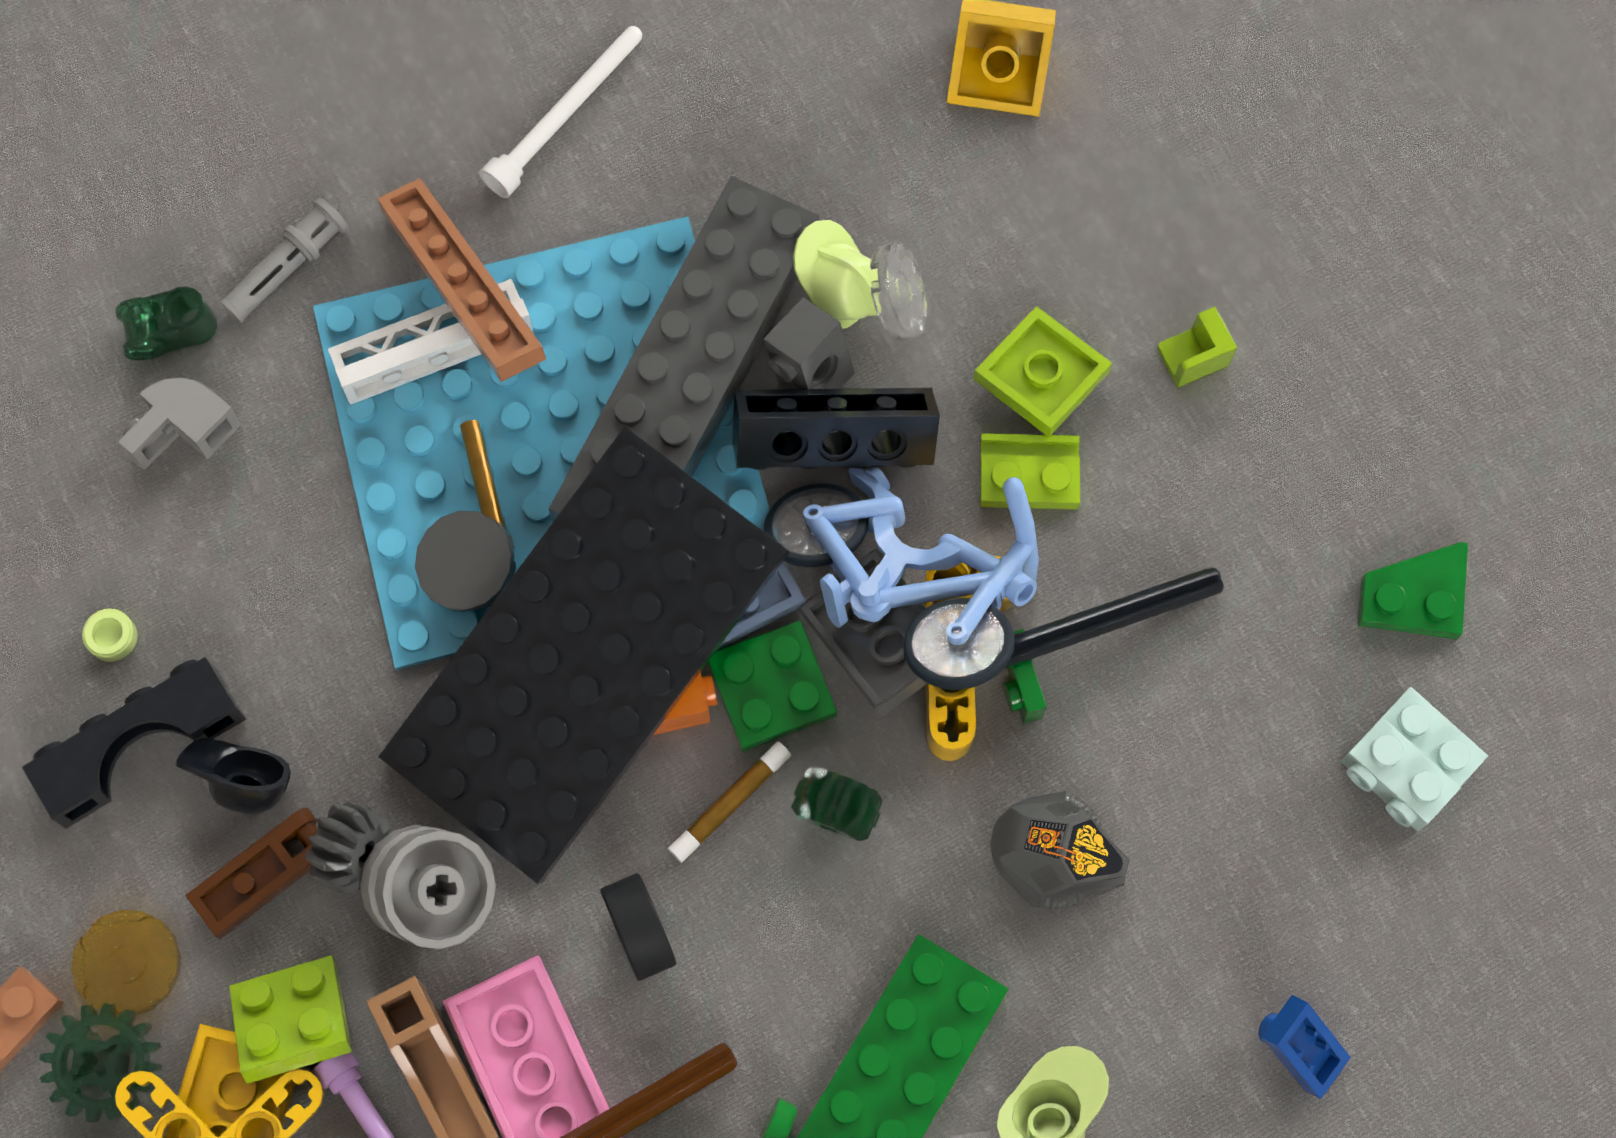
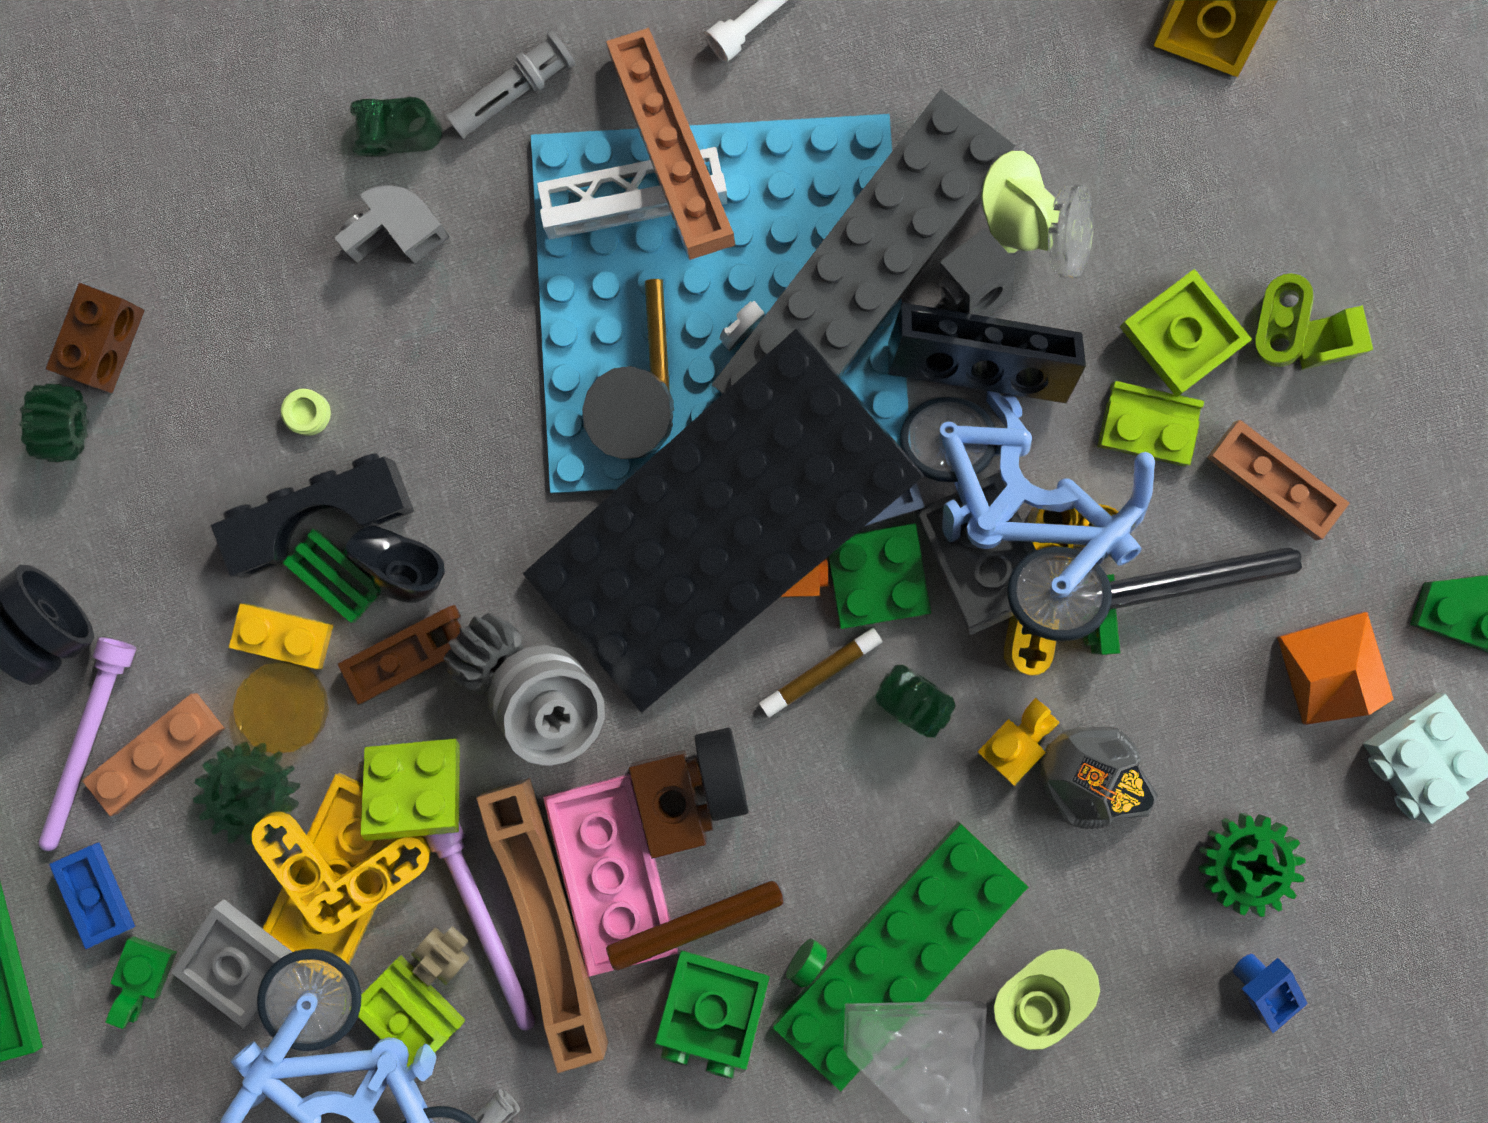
camera: 15 degrees right, 15 degrees up
(115, 882) = (281, 636): none -> yellow plate
(130, 782) = (304, 551): none -> green tile
(564, 952) = (667, 831): none -> reddish brown brick
(576, 436) = (747, 321): none -> white tile
(963, 835) = (1016, 748): none -> yellow plate
(1142, 342) = (1284, 322): none -> lime plate
(1176, 500) = (1278, 480): none -> nougat plate
(1248, 888) = (1250, 882): none -> green gear
(1288, 686) = (1336, 669): none -> orange slope

